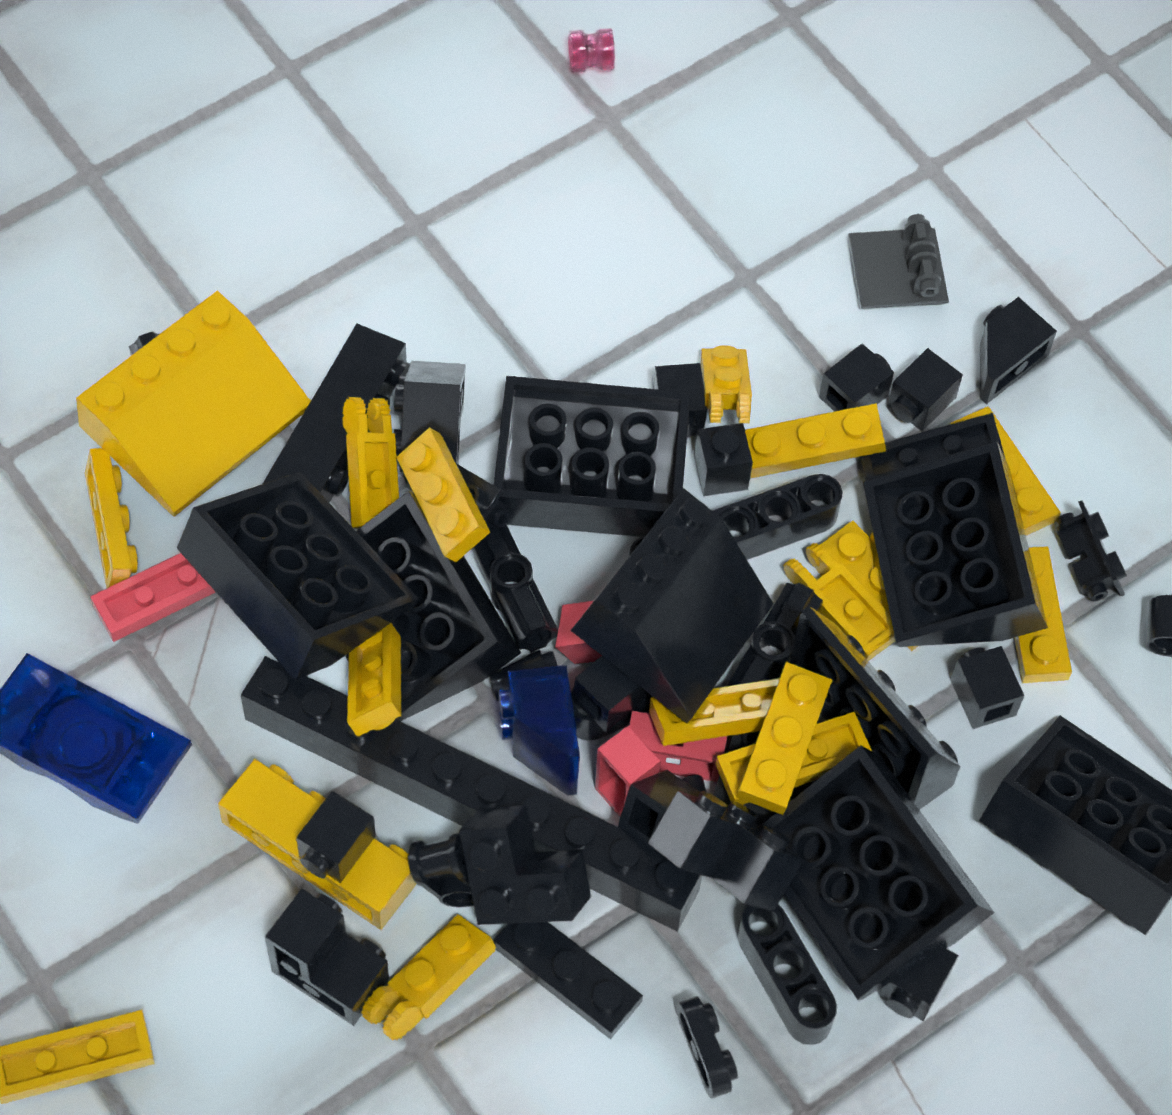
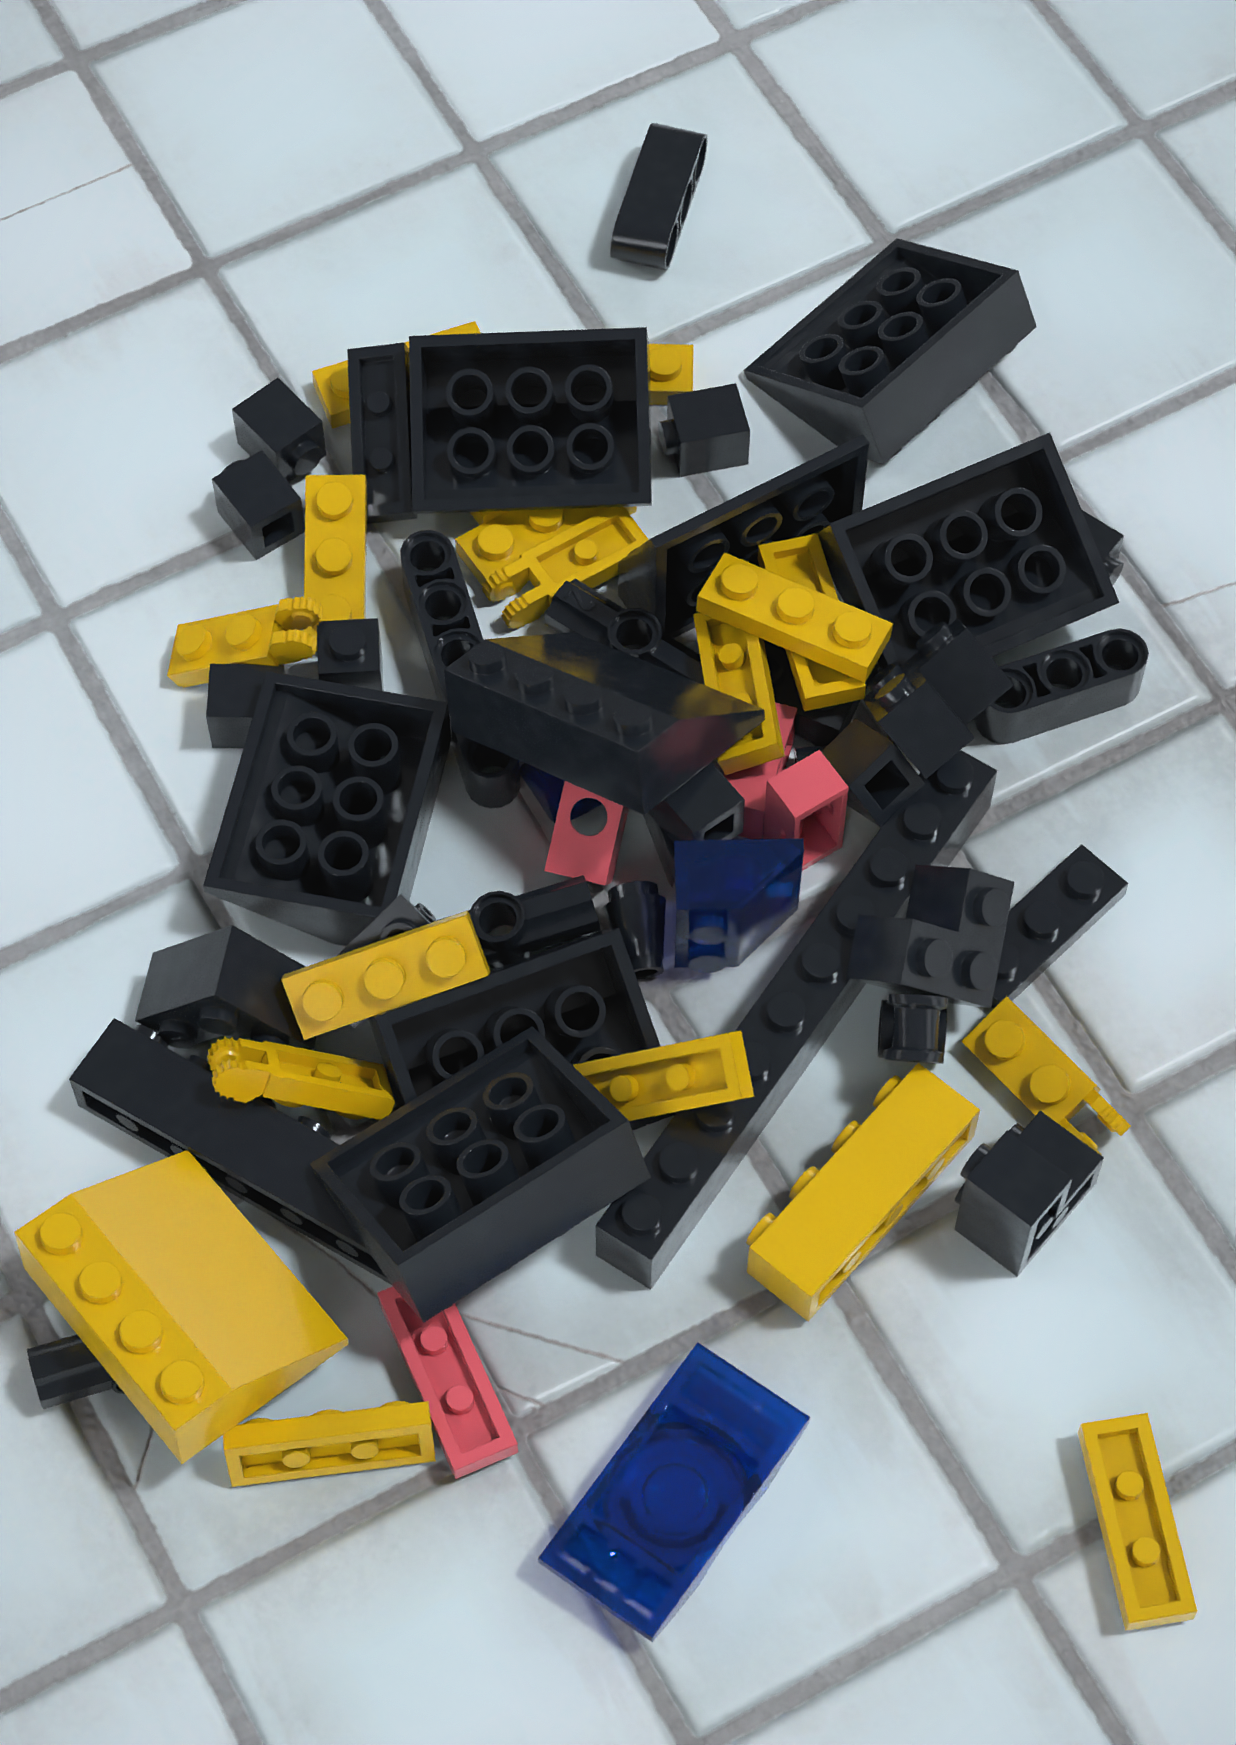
camera: 80 degrees left, 0 degrees up
(335, 837) = (889, 1140): black brick -> none
(699, 1029) = (1151, 784): black plate -> none
(899, 266) = (80, 438): dark grey hinge -> none
(1011, 346) = (232, 333): black slope -> none
(1085, 535) = (554, 291): black hinge -> none

